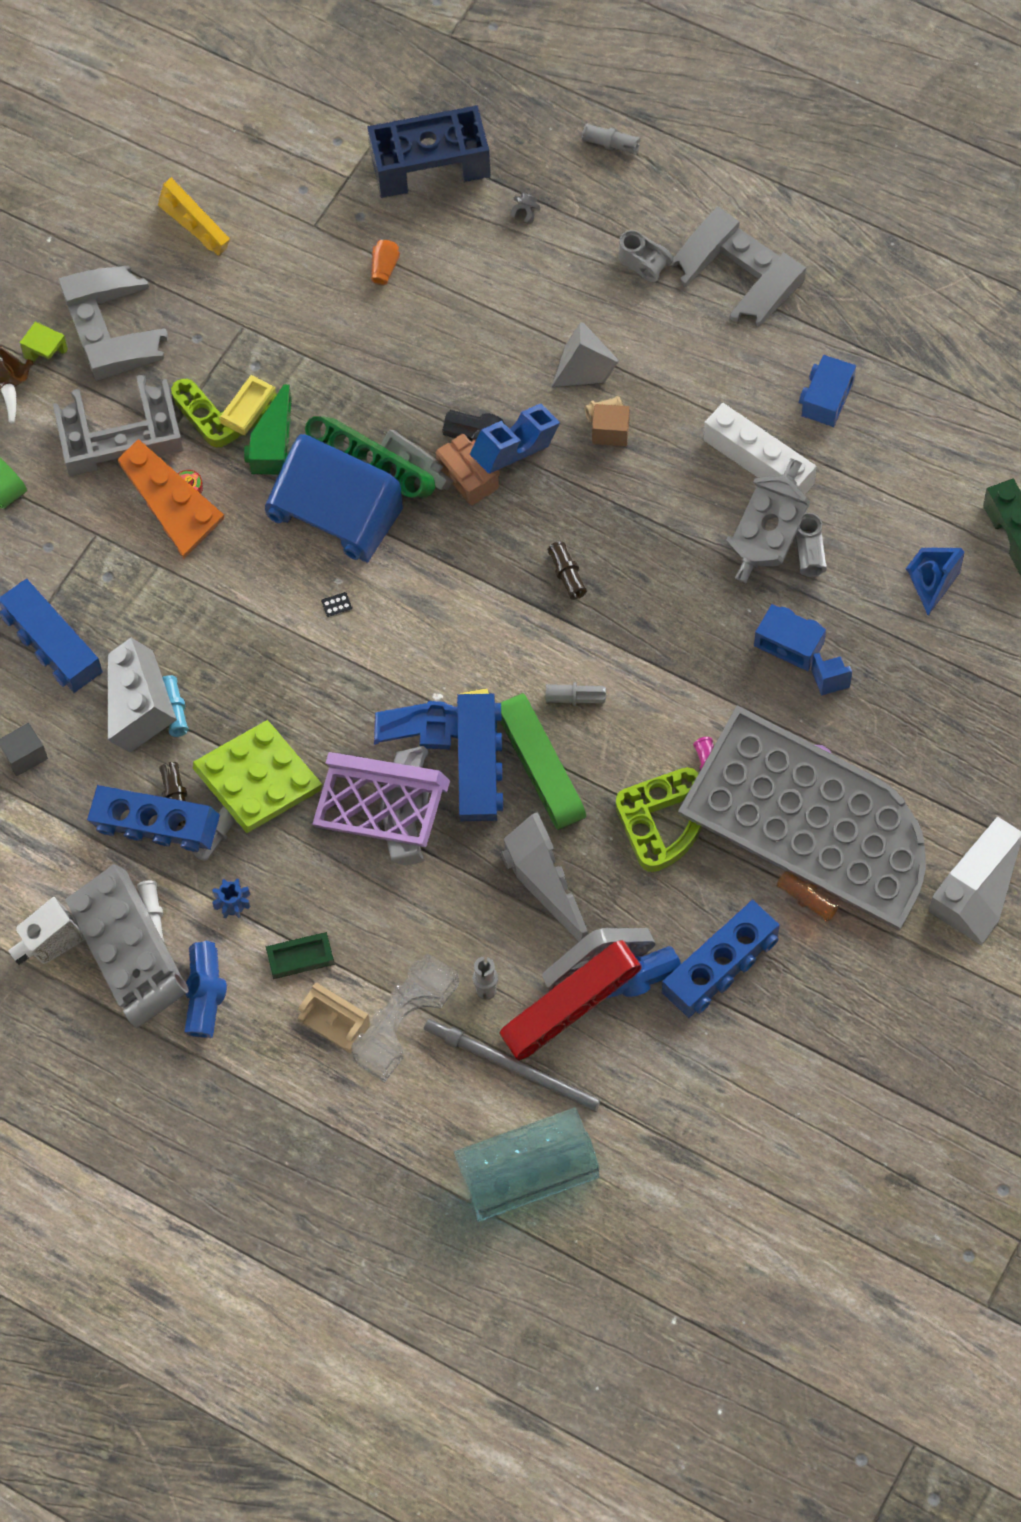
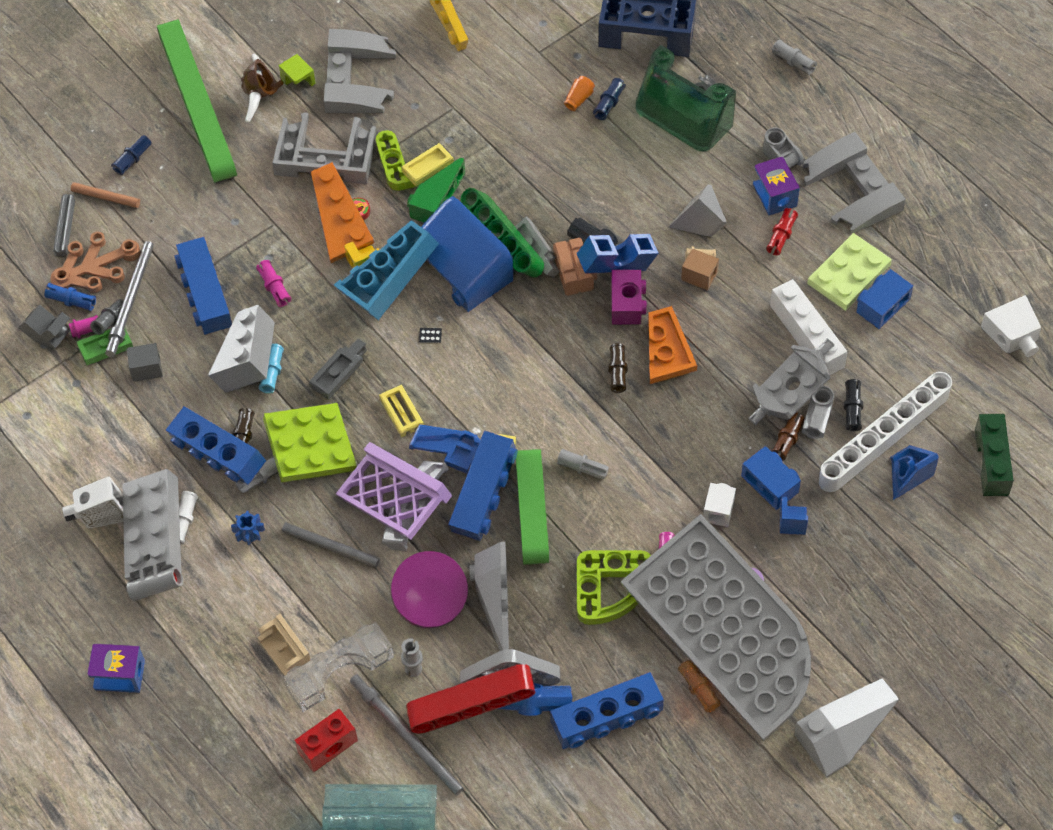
camera: 20 degrees right, 5 degrees down
(130, 605) = (273, 283): none -> dark pink pin
(155, 1110) = (116, 667): none -> piece
(205, 990) = (195, 589): blue piece -> none
(221, 541) = (357, 257): none -> yellow panel
(251, 681) = (338, 369): none -> dark grey hinge
(261, 546) = (388, 270): none -> dark azure wedge
(300, 955) = (281, 590): dark green tile -> none
(332, 884) = (331, 544): none -> flat silver bar
(361, 719) = (409, 427): none -> light yellow tile
(421, 257) = (609, 99): none -> dark blue pin
(428, 1103) = (326, 740): none -> red brick
(468, 895) = (429, 589): none -> magenta piece
(511, 239) = (681, 106): none -> clear green windscreen
(543, 500) = (627, 310): none -> magenta brick
(612, 526) = (668, 347): none -> orange wing
(656, 299) = (776, 186): none -> piece
(683, 350) = (782, 231): none -> red pin
(745, 686) = (719, 504): none -> white brick
(775, 371) = (849, 271): none -> yellowish green plate
(787, 583) = (788, 435): none -> reddish brown pin
(843, 523) = (853, 405): none -> black pin
(890, 553) = (881, 441): none -> white beam
(981, 375) = (1013, 326): none -> white torso

